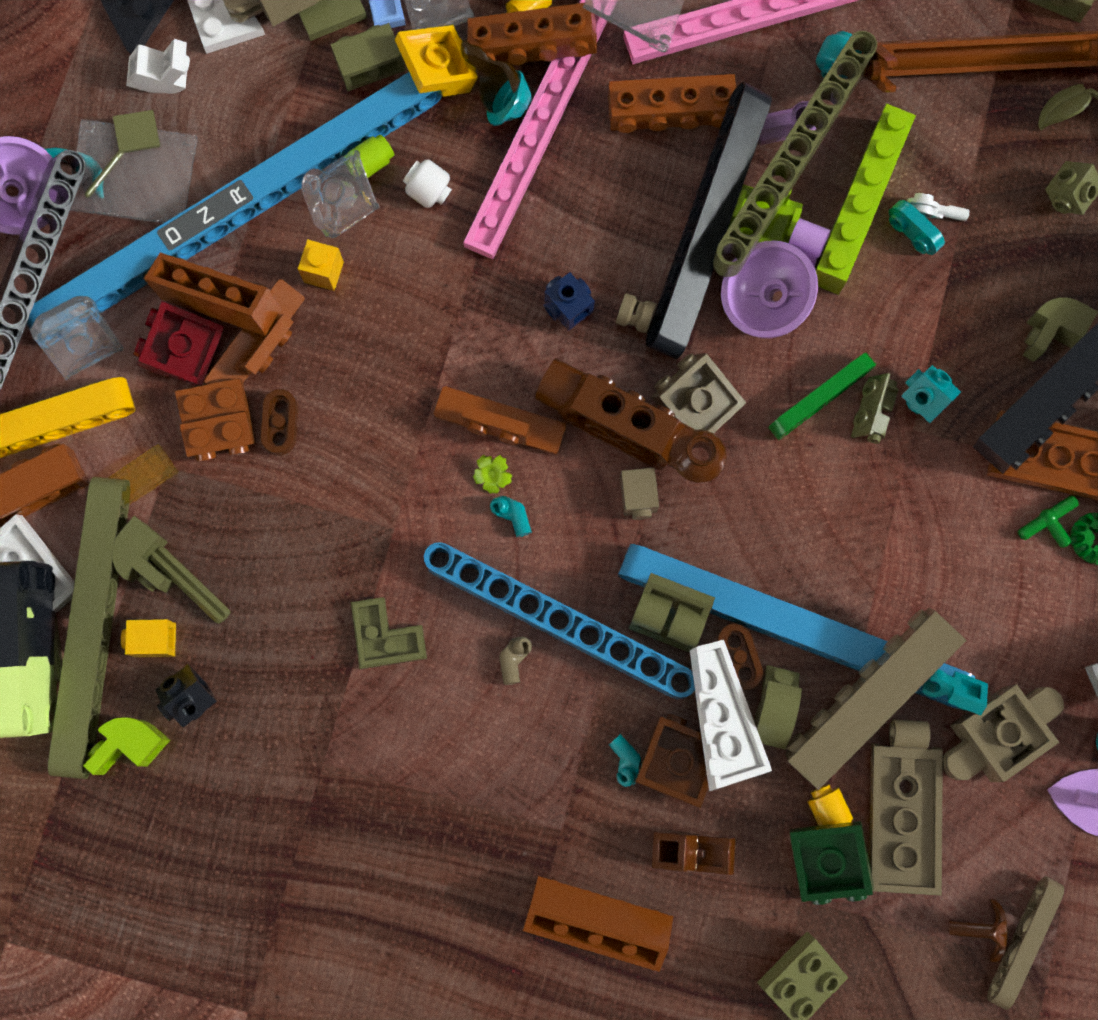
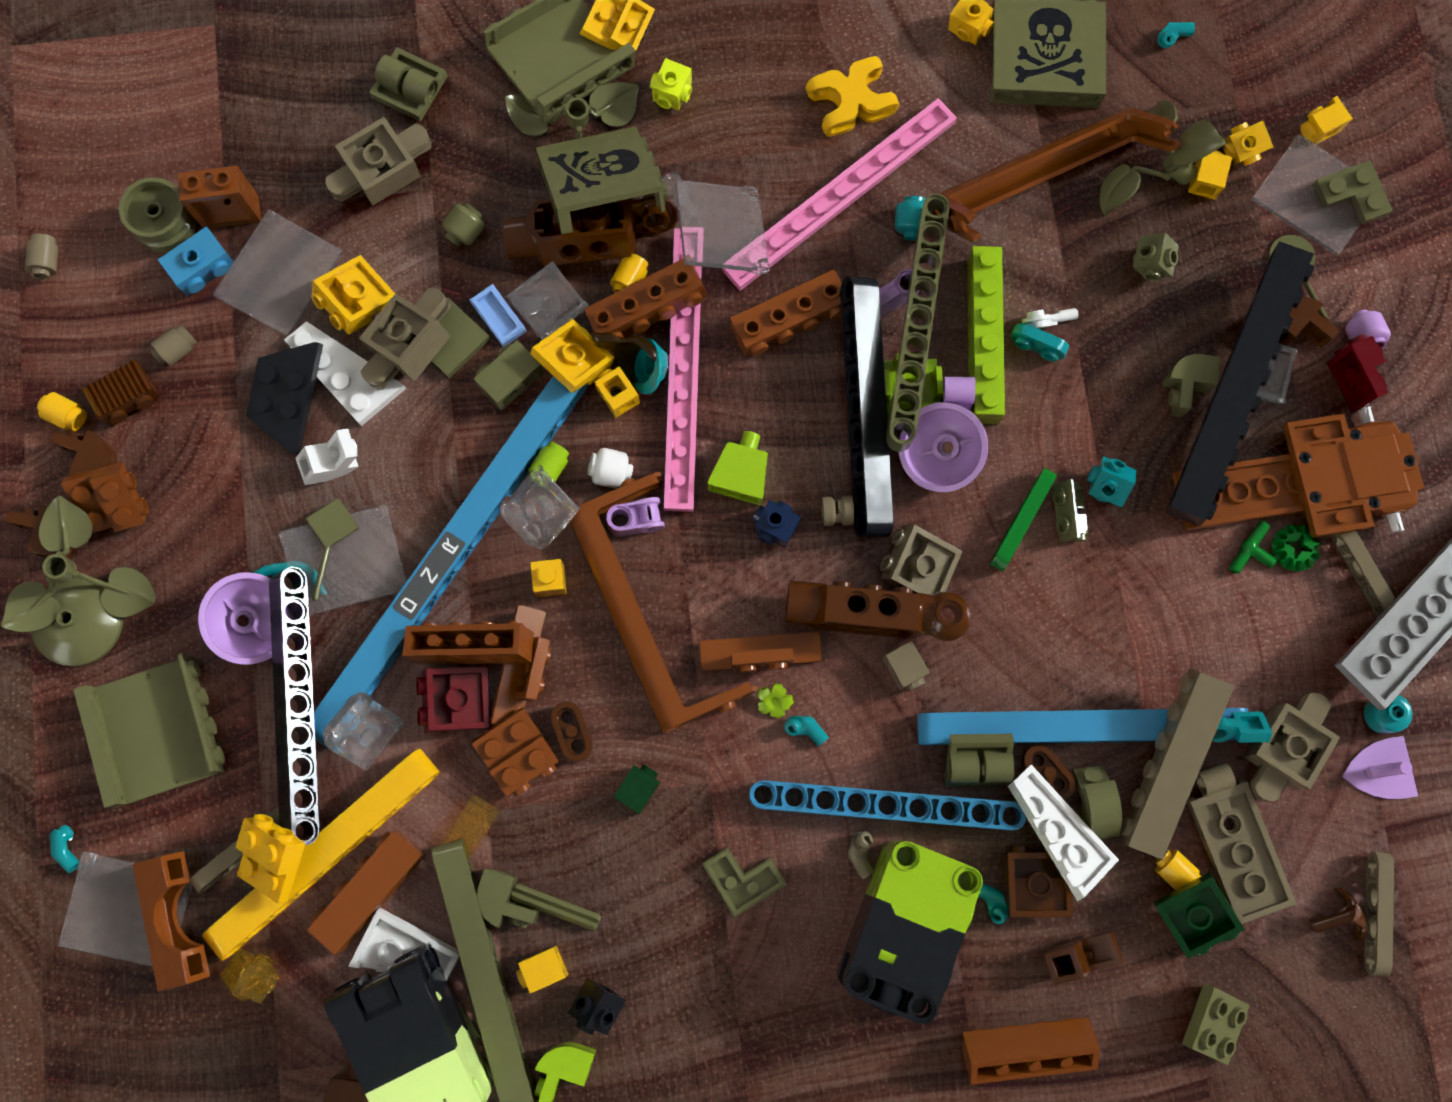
camera: 25 degrees left, 0 degrees up
(319, 502) = (638, 788): none -> dark green brick
(383, 332) = (628, 617): none -> dark orange piece
(434, 240) = (637, 517): none -> lavender piece
(466, 113) = (616, 379): none -> yellow brick
(523, 746) = (909, 930): none -> piece
(556, 236) = (741, 470): none -> lime torso

